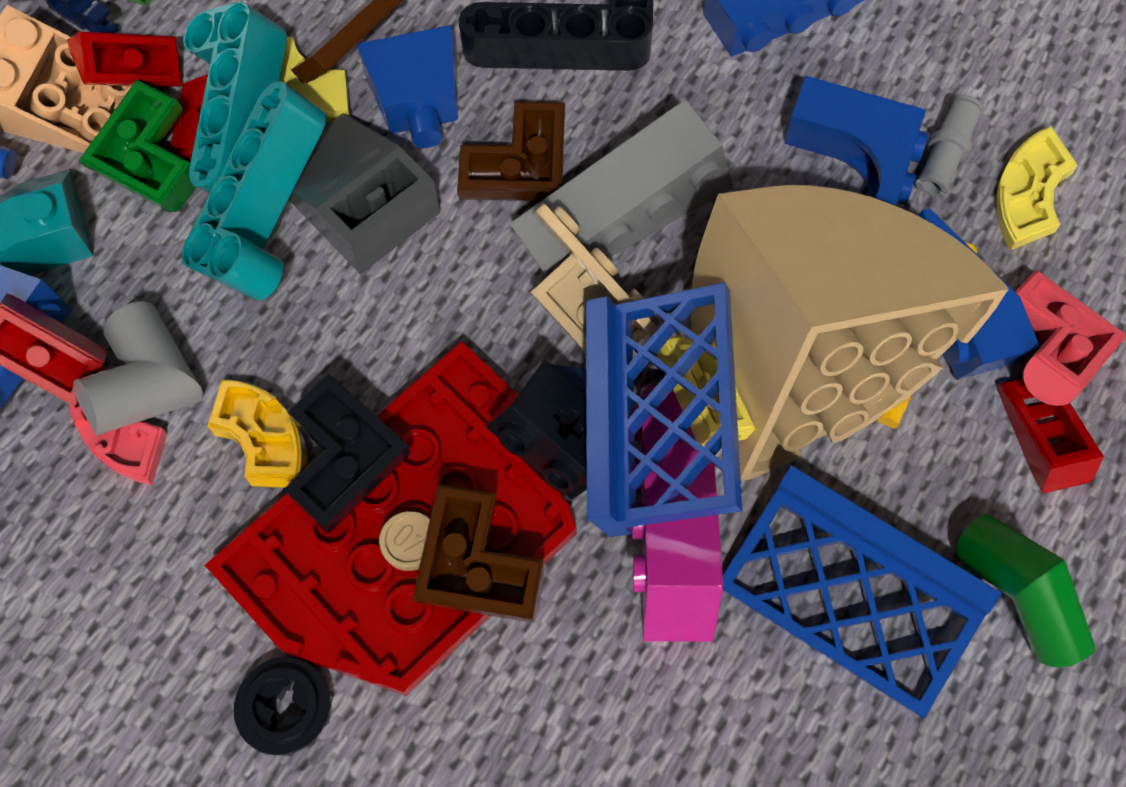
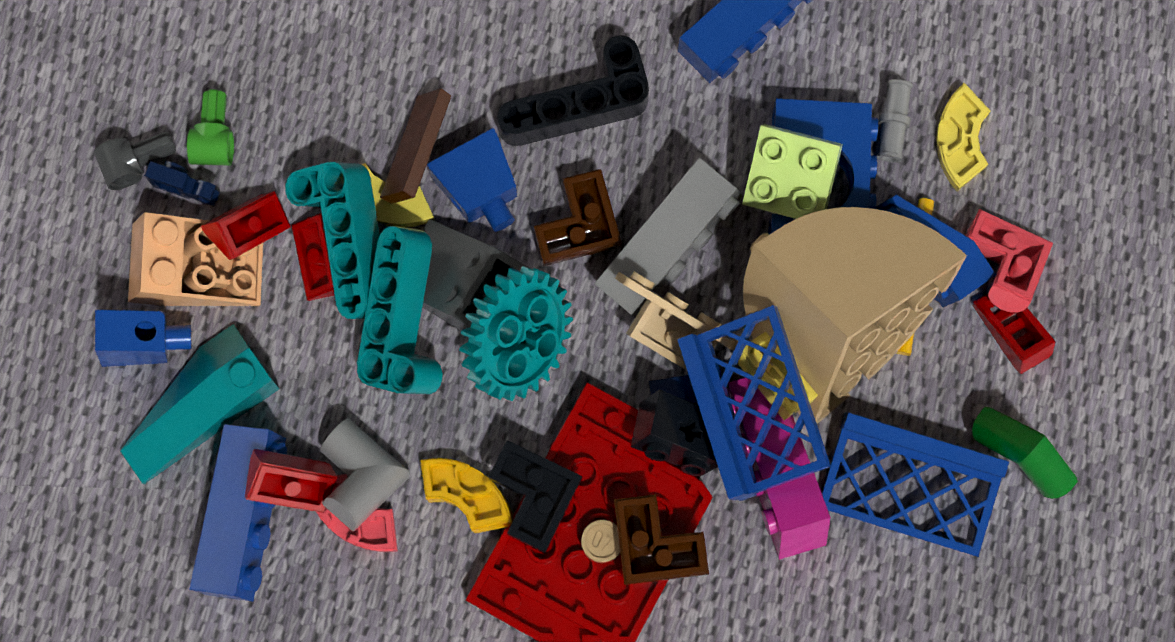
camera: 20 degrees left, 10 degrees up
(130, 152) = (278, 302): green brick -> none
(387, 200) = (516, 333): none -> teal gear
(800, 143) = (791, 172): none -> yellowish green plate

